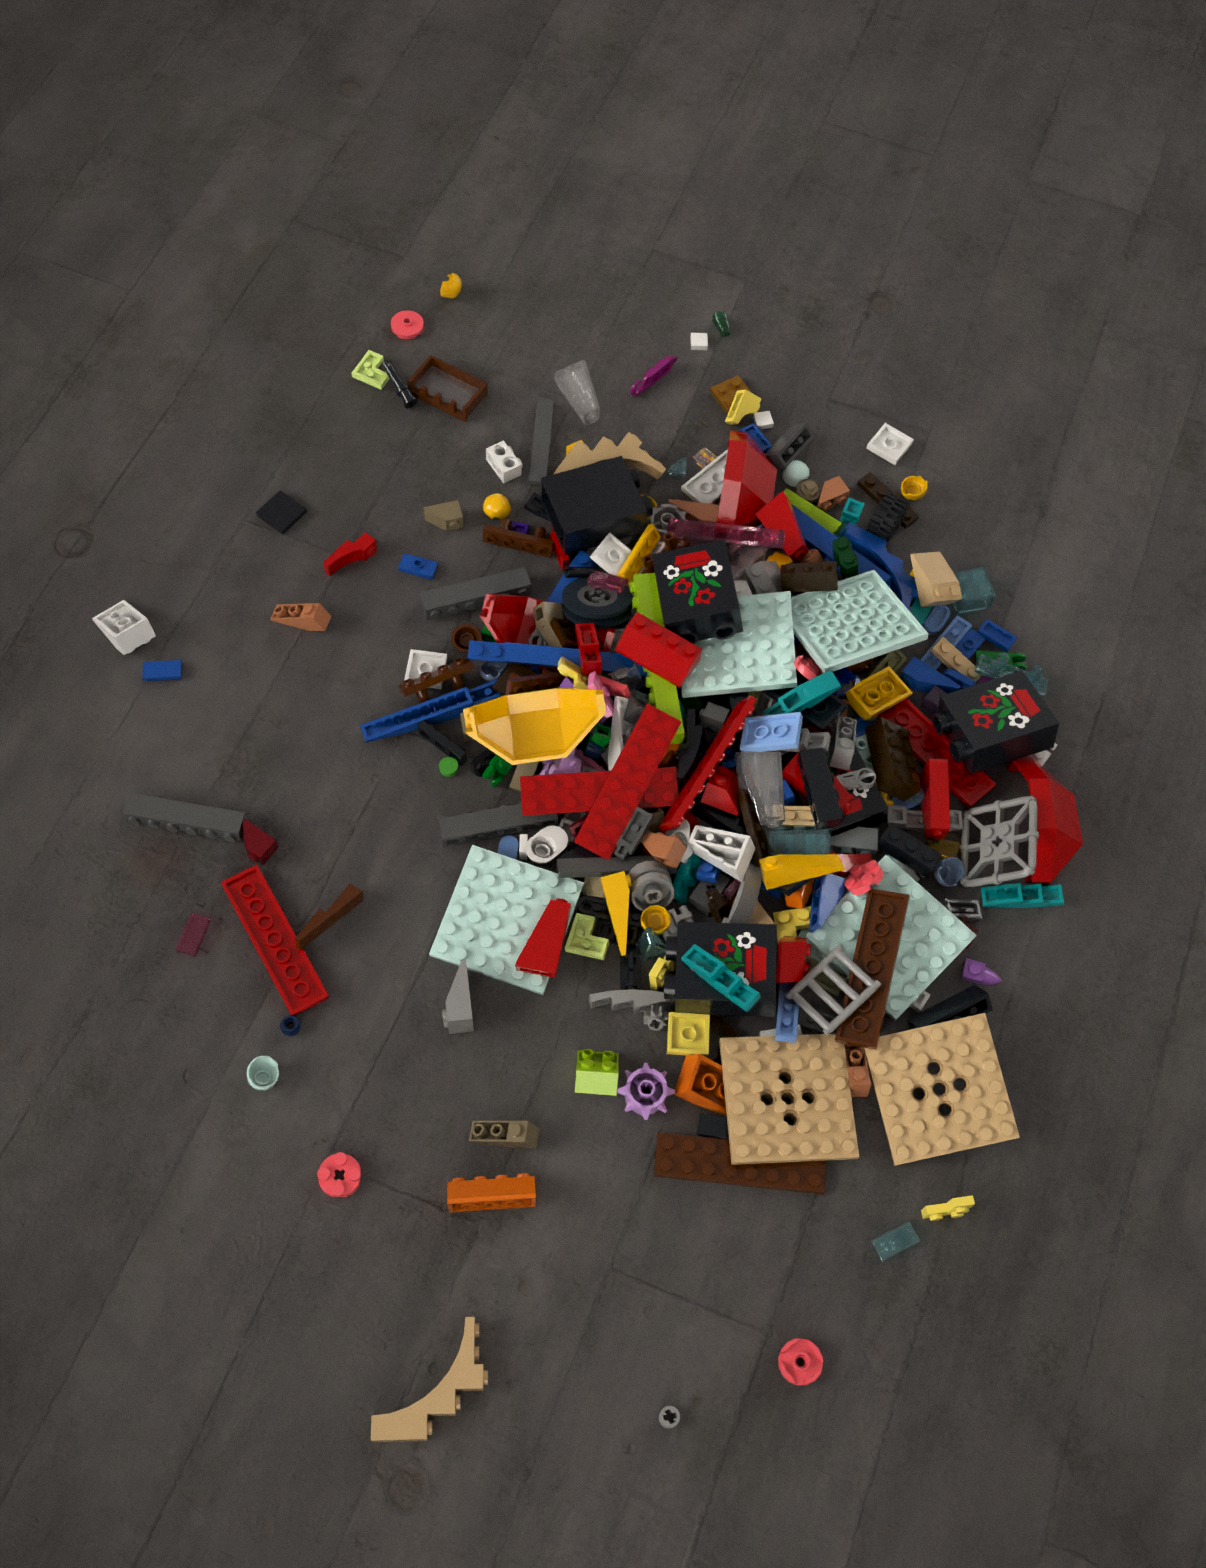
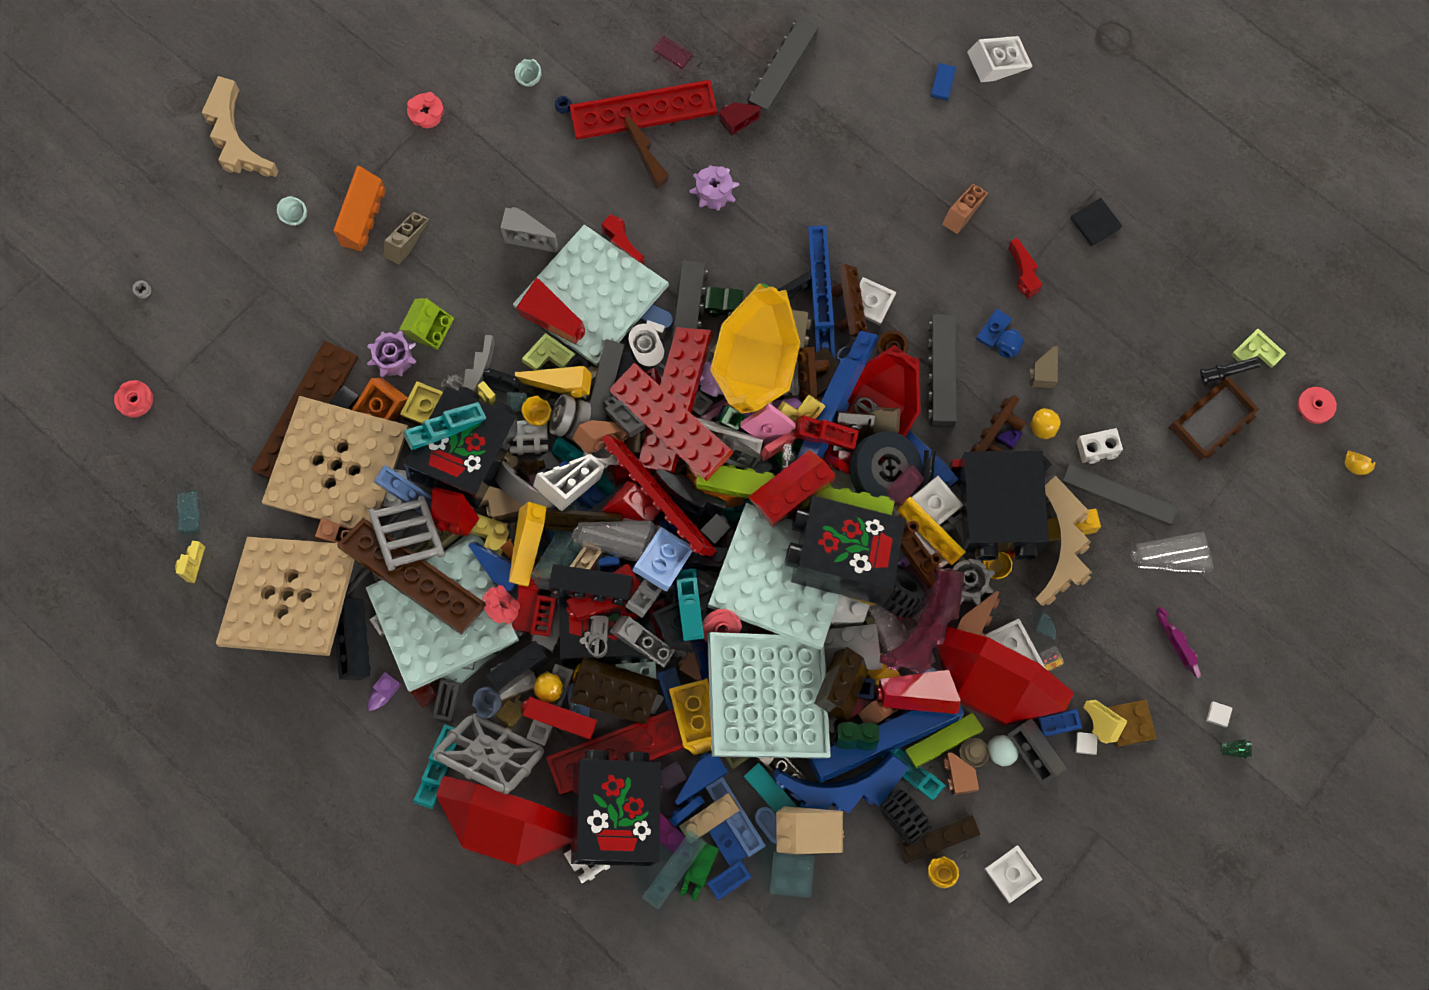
camera: 115 degrees right, 10 degrees up
(339, 843) = (714, 187): none -> lavender brick
(426, 918) = (615, 229): none -> red slope
(430, 547) = (1009, 343): none -> blue head
(471, 792) = (722, 301): none -> dark green brick
(516, 1273) = (291, 210): none -> light aqua hair
(839, 847) = (553, 600): none -> red slope
(912, 821) = (548, 687): none -> yellow hair

